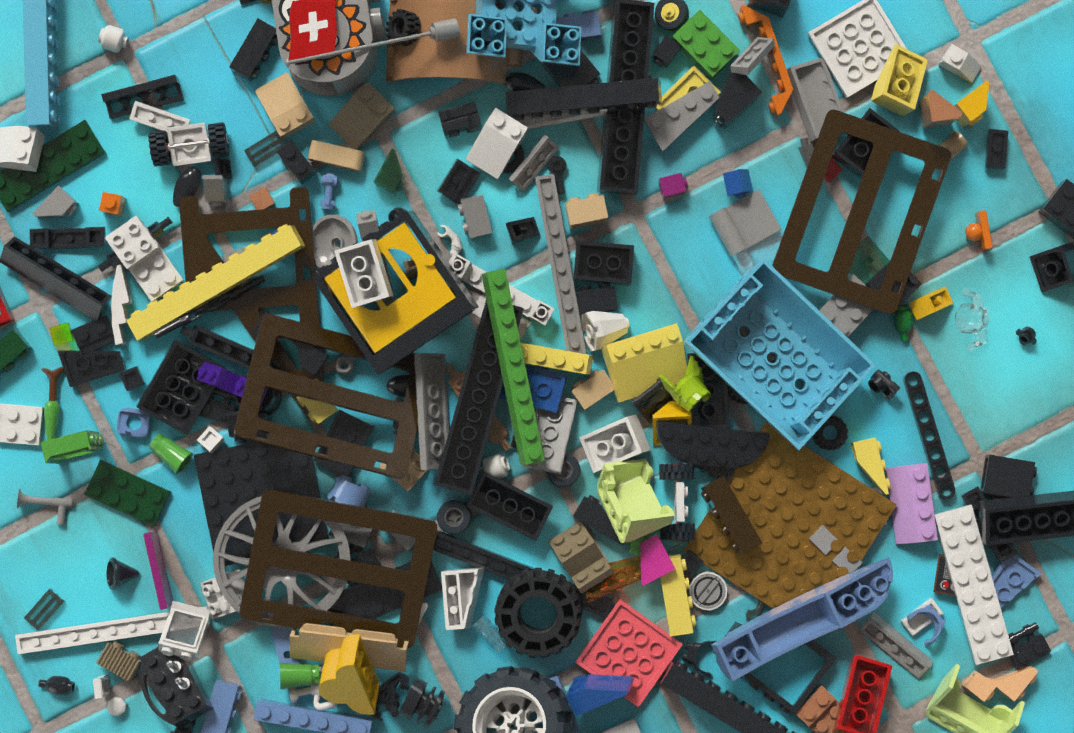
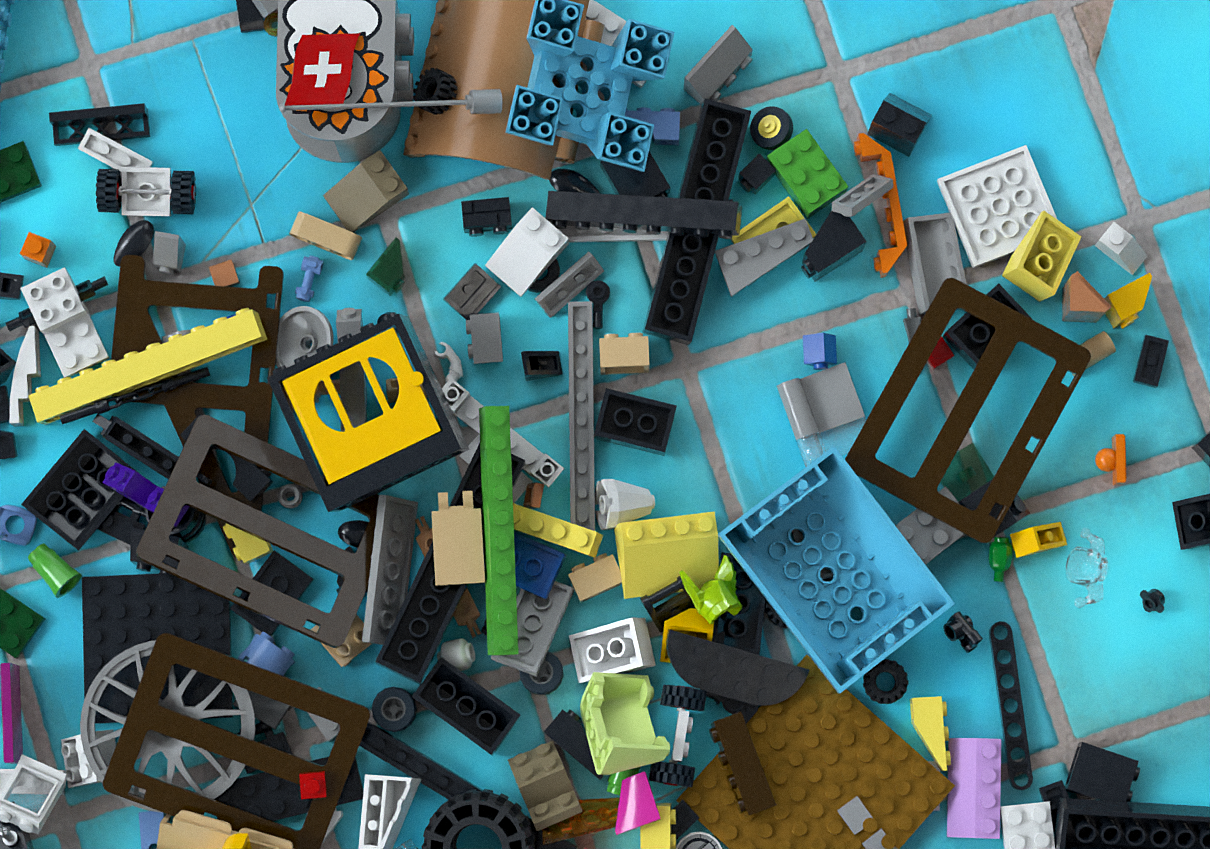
camera: 10 degrees right, 5 degrees down
(112, 38) = (75, 47): white head -> none
(132, 378) = (22, 469): black plate -> none
(210, 439) = (106, 561): white plate -> none
(223, 168) = (183, 227): black slope -> none
(254, 50) = (247, 90): black brick -> none
(268, 147) = (254, 197): clear smoke tile -> none
(285, 106) = (273, 164): tan slope -> none
(296, 162) = (274, 235): black brick -> none
(363, 273) = (331, 381): white brick -> none
(402, 587) = (312, 785): none -> red plate
(482, 381) = (457, 542): none -> tan tile
(533, 333) = (533, 495): none -> nougat tile
(600, 299) = (621, 466): black brick -> none
(672, 185) = (738, 340): magenta brick -> none

